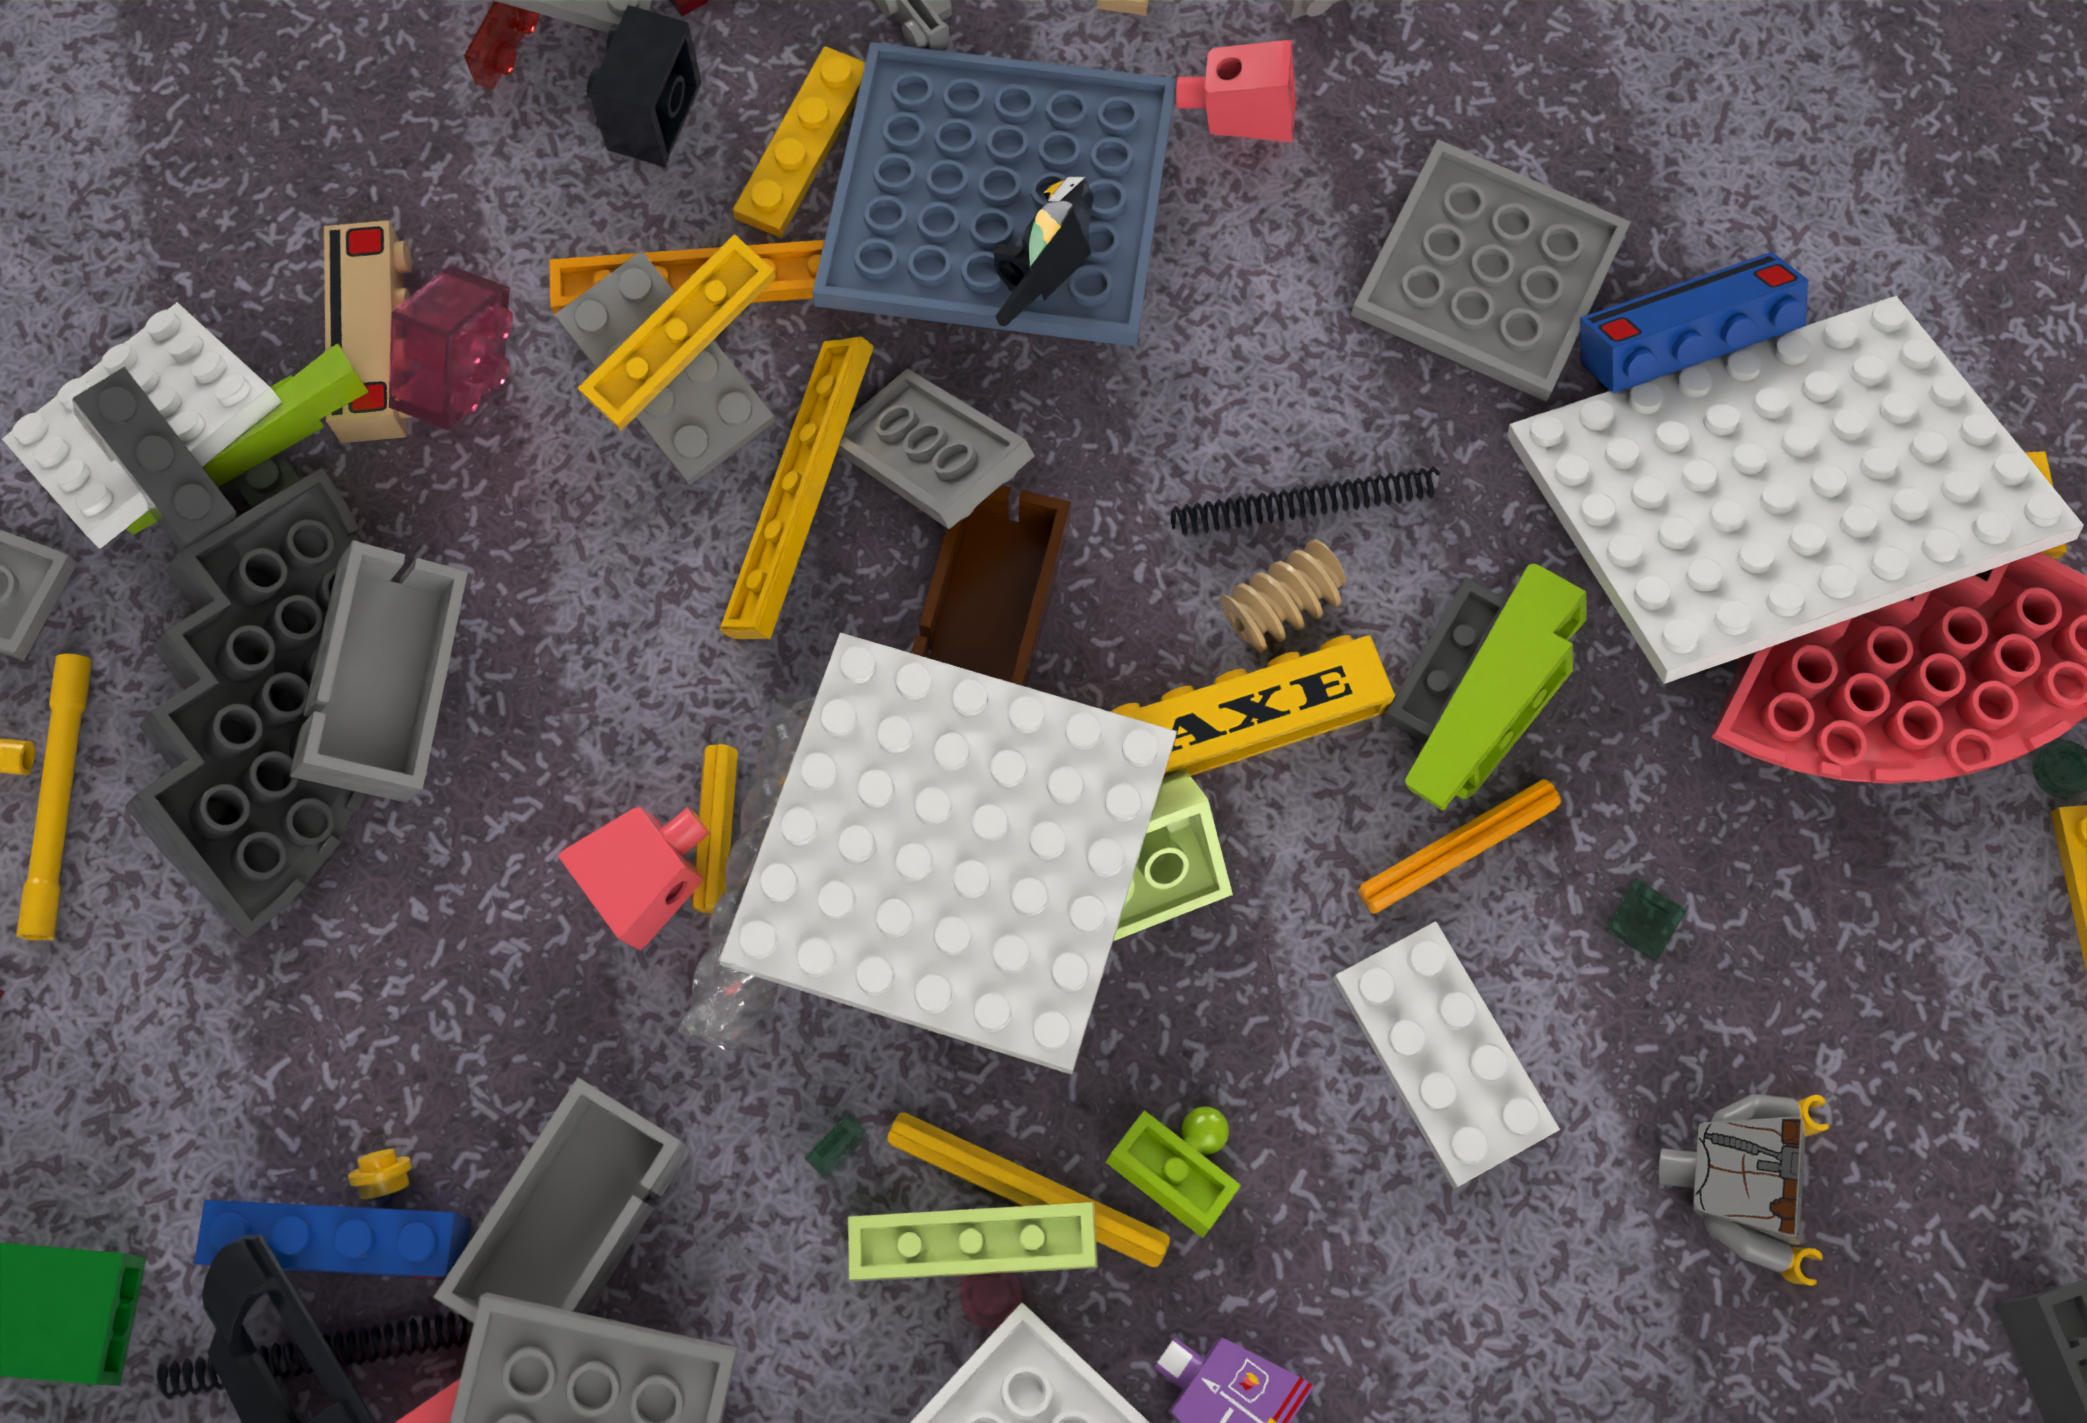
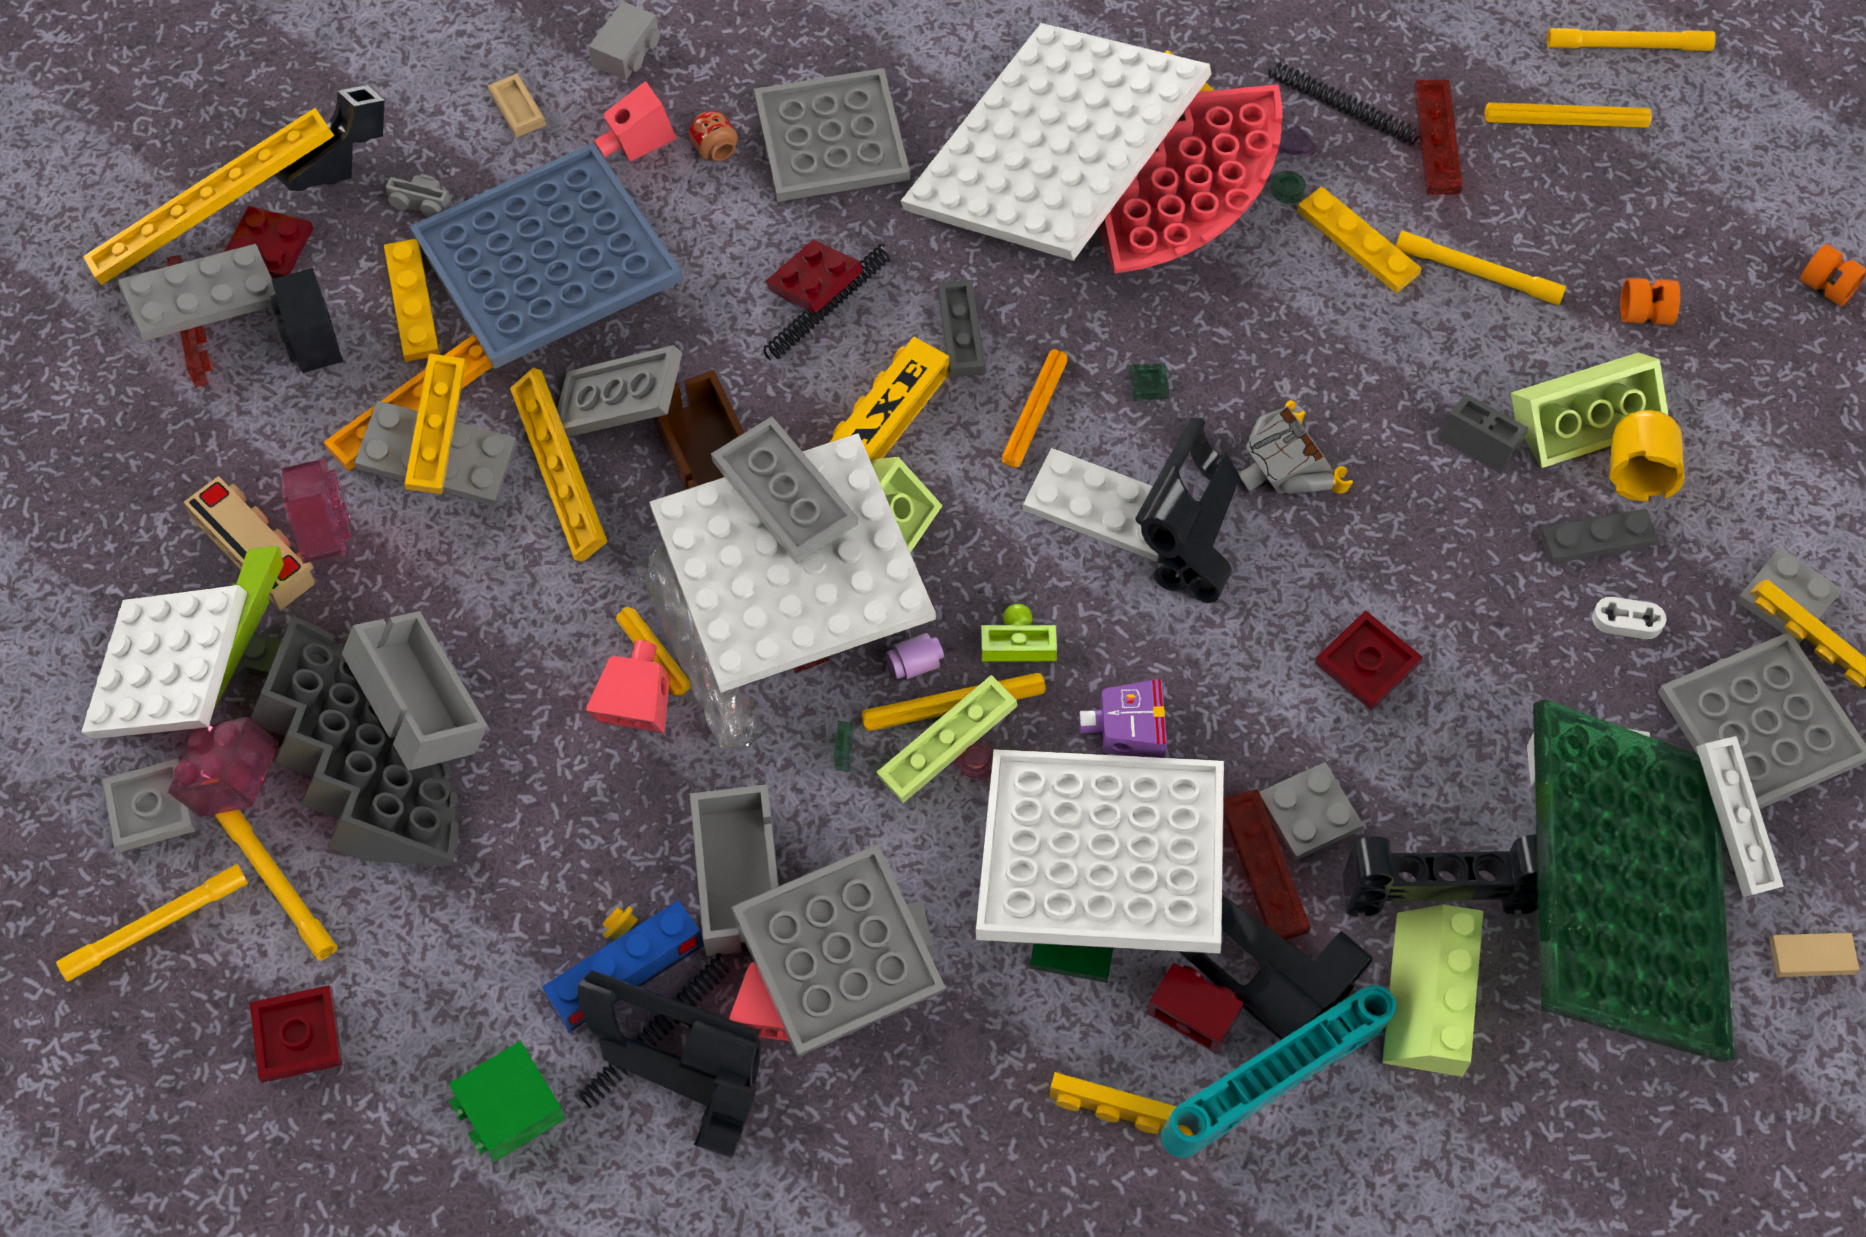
camera: 35 degrees left, 10 degrees down
(89, 610) = (223, 767): none -> clear pink brick
(154, 458) = (188, 643): dark grey arch -> none
(1007, 750) = (784, 489): none -> light grey plate
(1023, 1089) = (914, 656): none -> lavender brick
(1048, 247) = (601, 257): black animal -> none
(1285, 593) = (856, 349): tan piece -> none
(1313, 454) = (814, 276): none -> dark red plate
(1336, 169) = (713, 136): none -> nougat head
(1503, 689) = (998, 319): lime wedge -> none
(1510, 1176) = (1187, 528): none -> black panel
(1693, 322) = (952, 95): blue brick -> none

